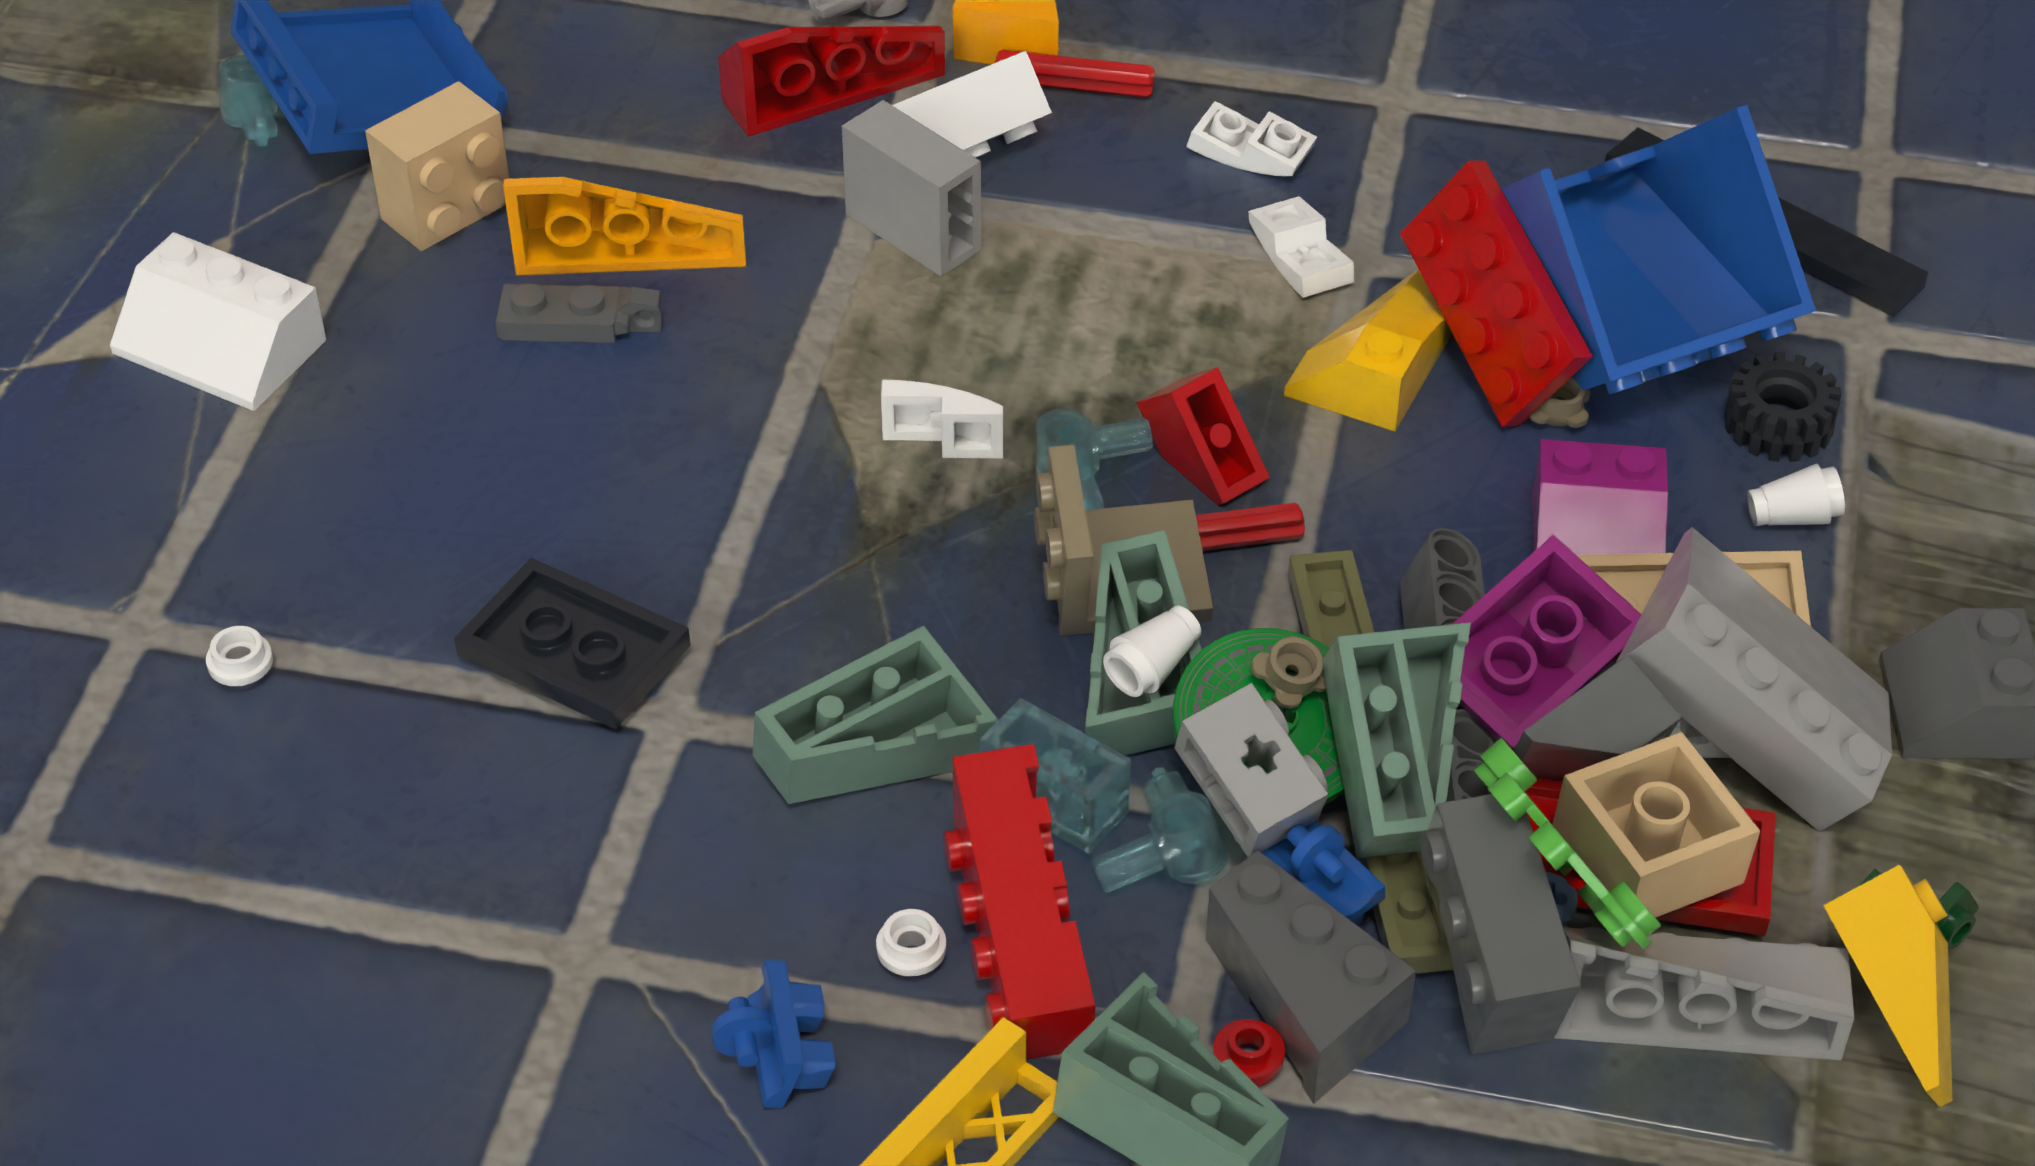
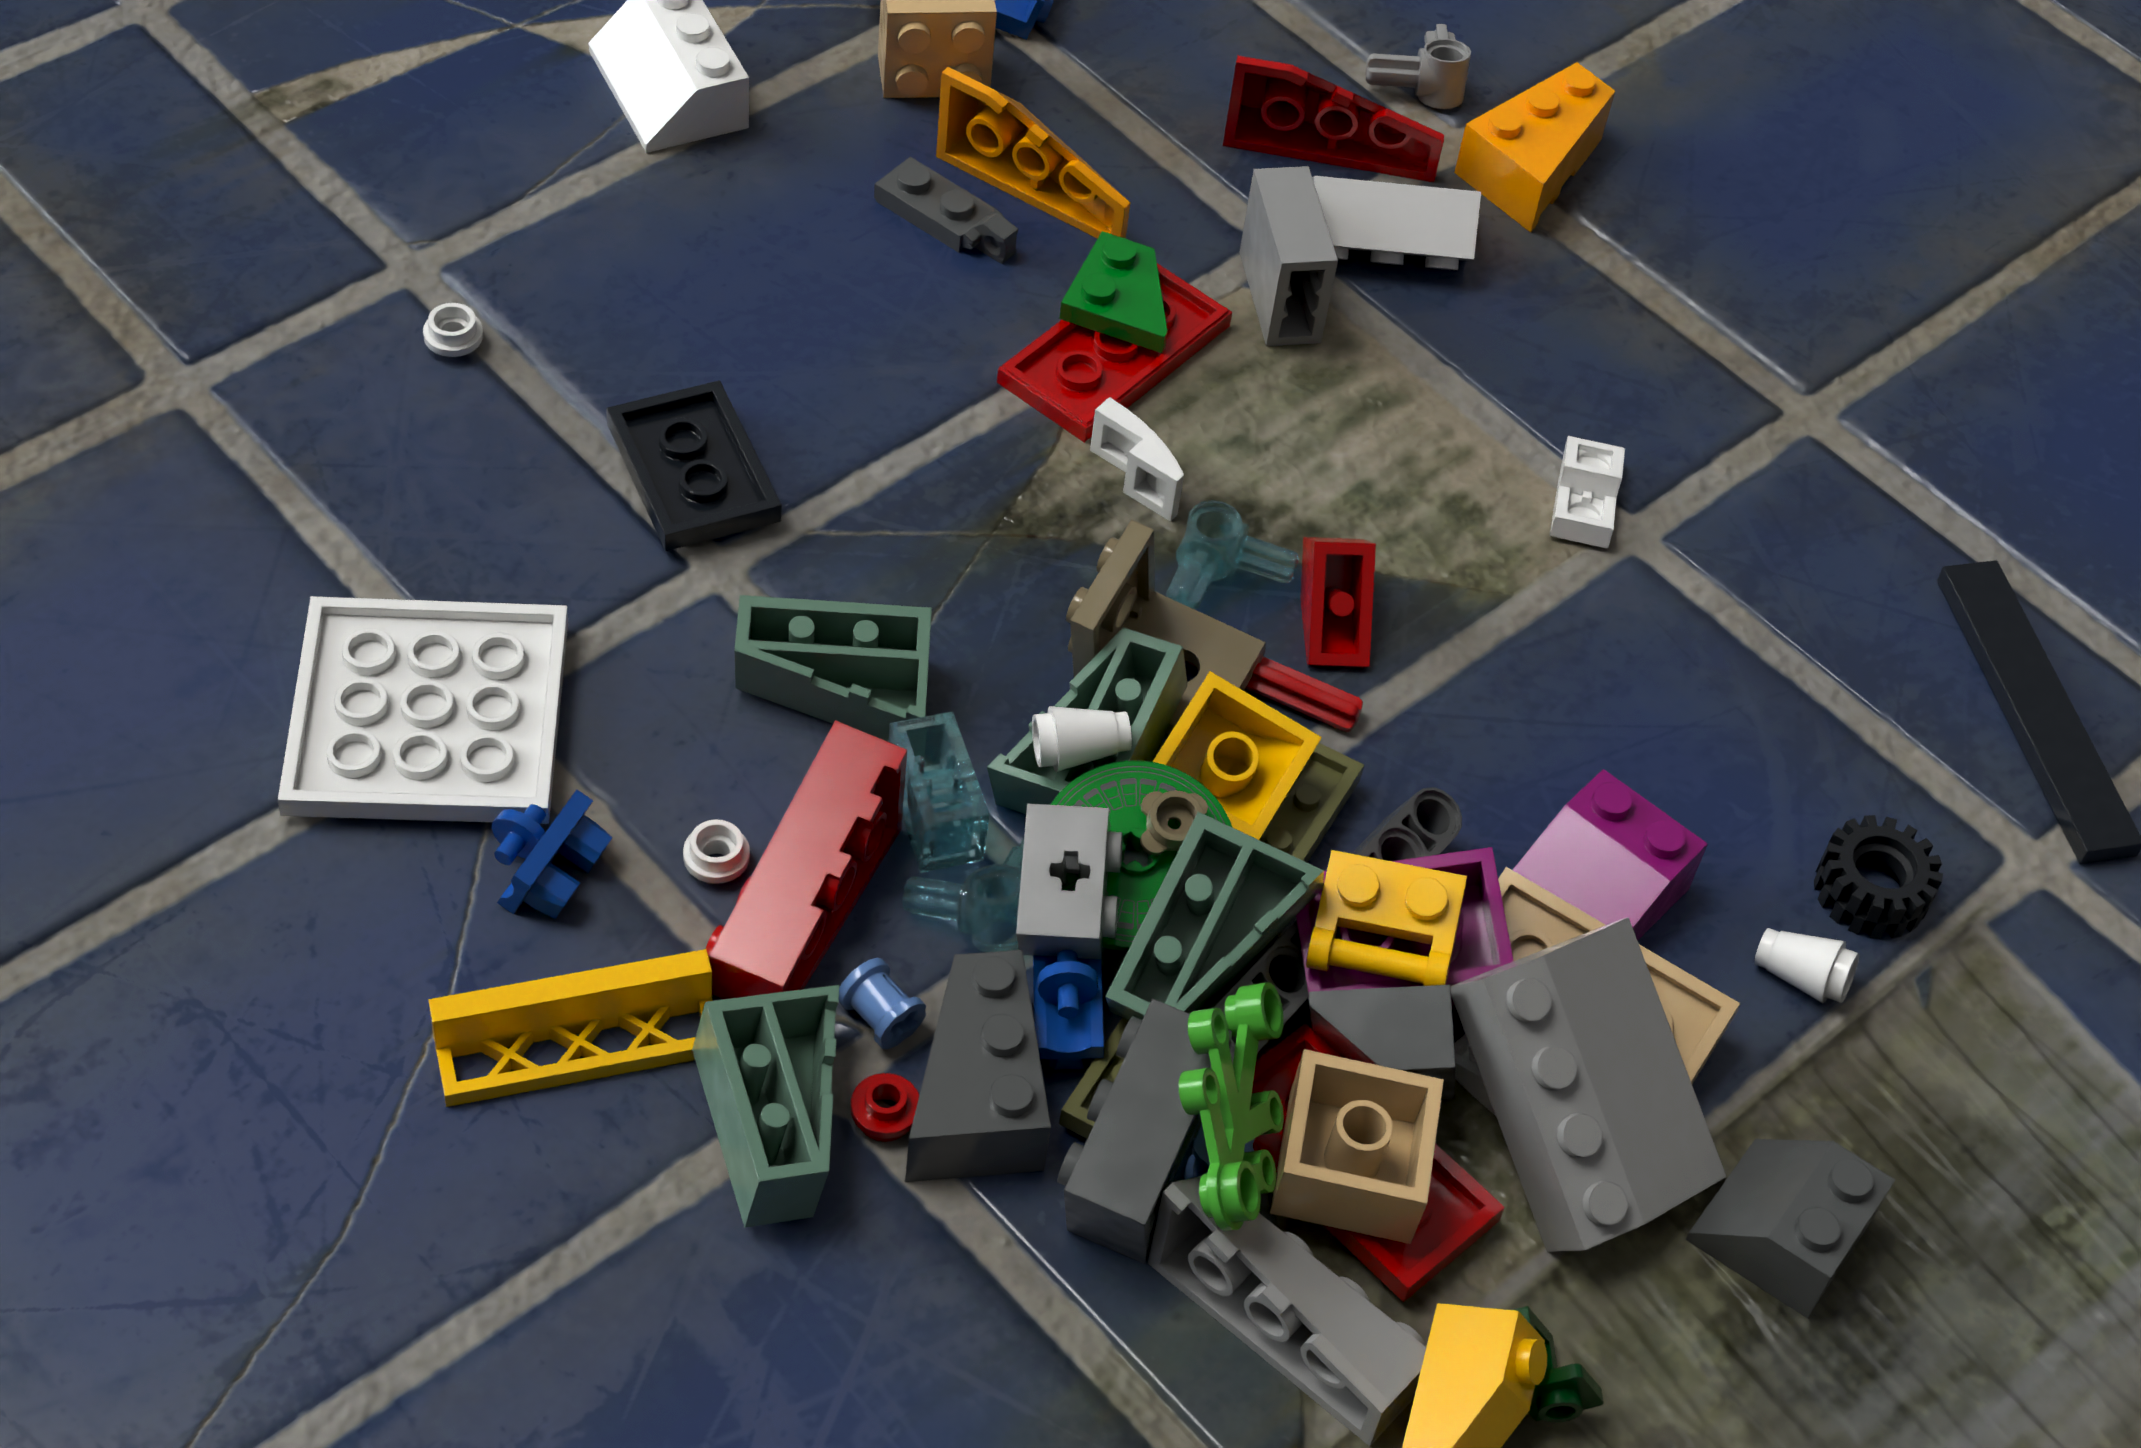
camera: 30 degrees right, 5 degrees up
(544, 987) = (424, 710): none -> white plate
(798, 295) = (1119, 293): none -> green wing
(825, 346) = (1077, 368): none -> red tile
(1090, 74) = (1541, 240): red axle -> none
(1176, 972) = (881, 1003): none -> medium blue bush
(1263, 148) = (1630, 381): white slope -> none
(1263, 585) = (1239, 752): none -> yellow slope
(1376, 357) = (1569, 623): yellow wedge -> none
(1495, 294) = (1678, 622): red plate -> none
(1521, 623) = (1390, 902): none -> yellow plate
(1564, 407) = (1682, 752): dark tan plate -> none
(1667, 252) = (1847, 672): blue windscreen -> none

